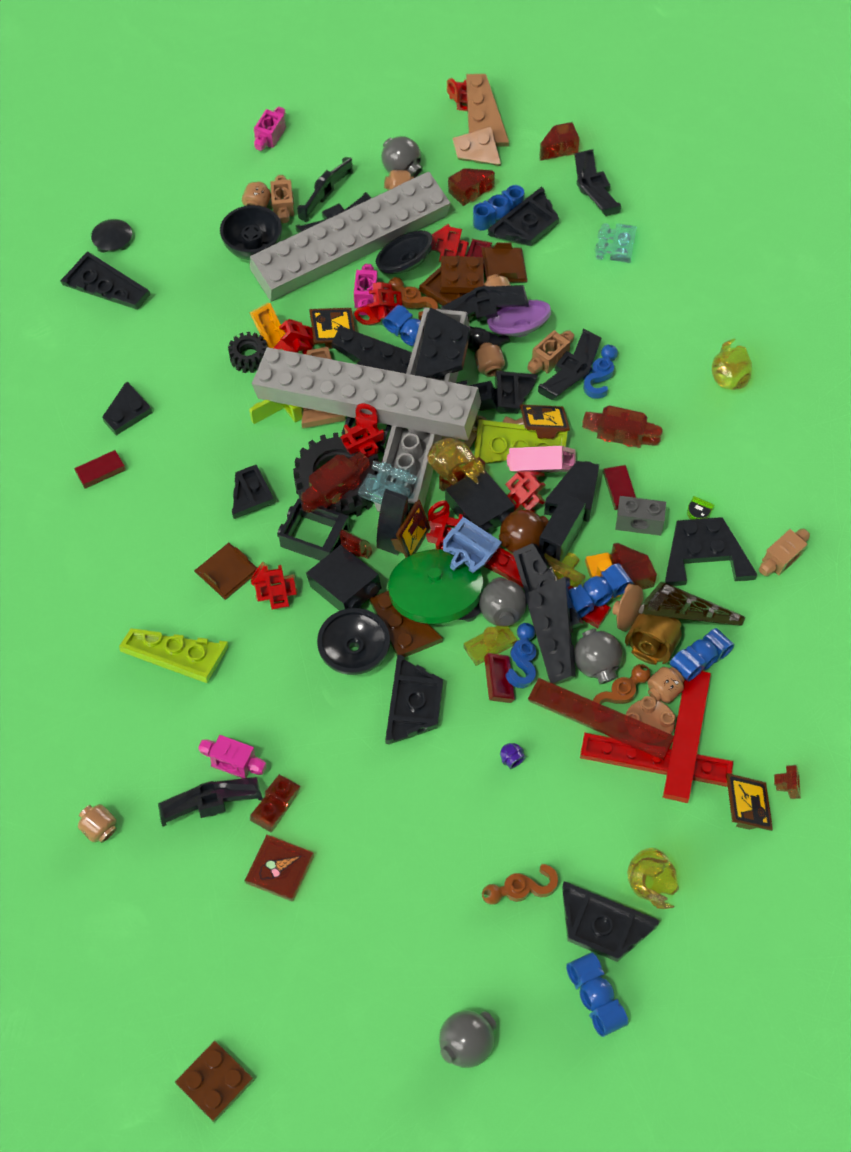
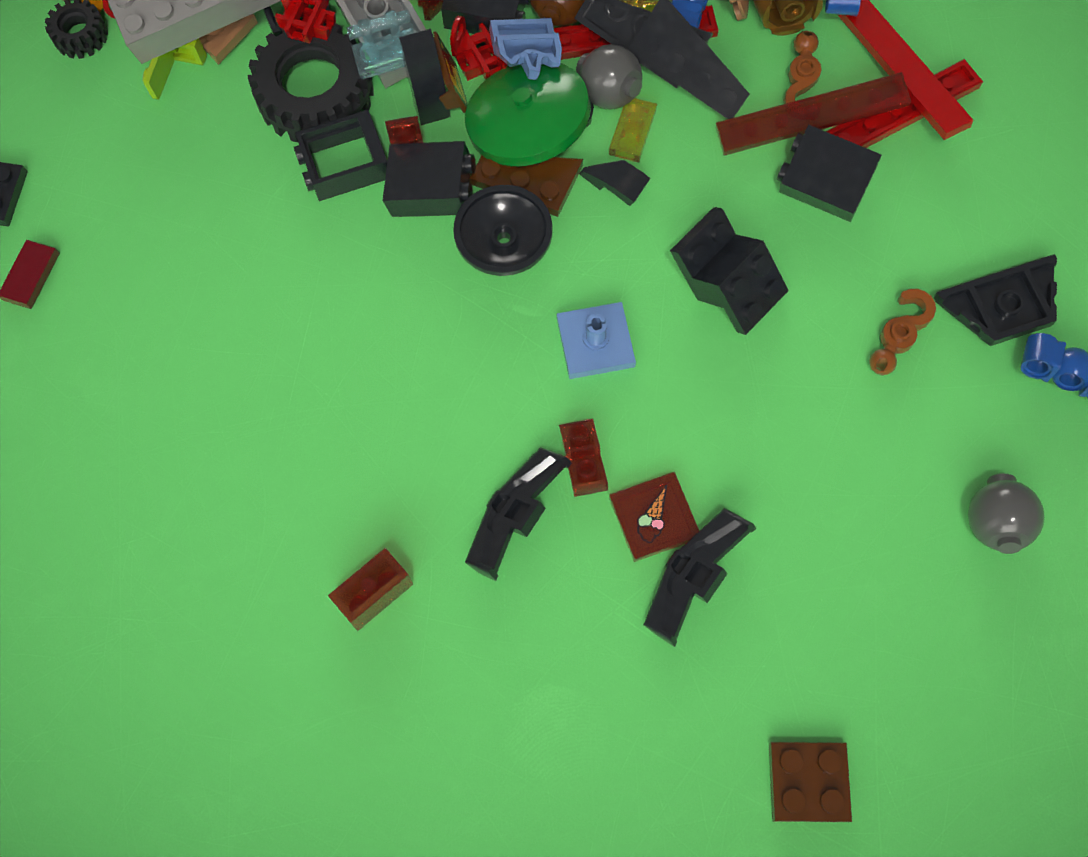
camera: 40 degrees left, 10 degrees up
(97, 775) = (371, 589): none -> clear red brick
(97, 823) = (421, 639): medium nougat head -> none
(185, 656) = (334, 390): lime wing -> none
(226, 570) = (285, 269): reddish brown piece -> none
(232, 756) = (494, 448): dark pink piece -> none
(250, 492) = (230, 168): black wing -> none
(262, 582) = (343, 239): red piece -> none
(266, 915) = (694, 573): none -> black plate
(333, 481) = (322, 80): clear red hinge -> none
(347, 745) = (595, 340): none -> medium blue tile
(413, 702) = (618, 242): black wing -> none
(451, 665) = (618, 177): none -> black slope
(453, 767) = (729, 270): none -> black bracket
(498, 686) = (677, 153): dark red tile -> none
(512, 755) = (765, 216): dark purple plate -> none
(522, 654) = (677, 112): blue piece -> none
(570, 760) = (828, 172): none -> black brick
(598, 655) = (753, 55): dark grey brick -> none
(652, 874) = (1006, 219): clear yellow helmet -> none
(653, 713) = (852, 71): medium nougat dish -> none
(665, 684) = (839, 35): medium nougat head -> none
(749, 802) = (1018, 83): piece -> none
(789, 782) = (1032, 36): clear red tile -> none

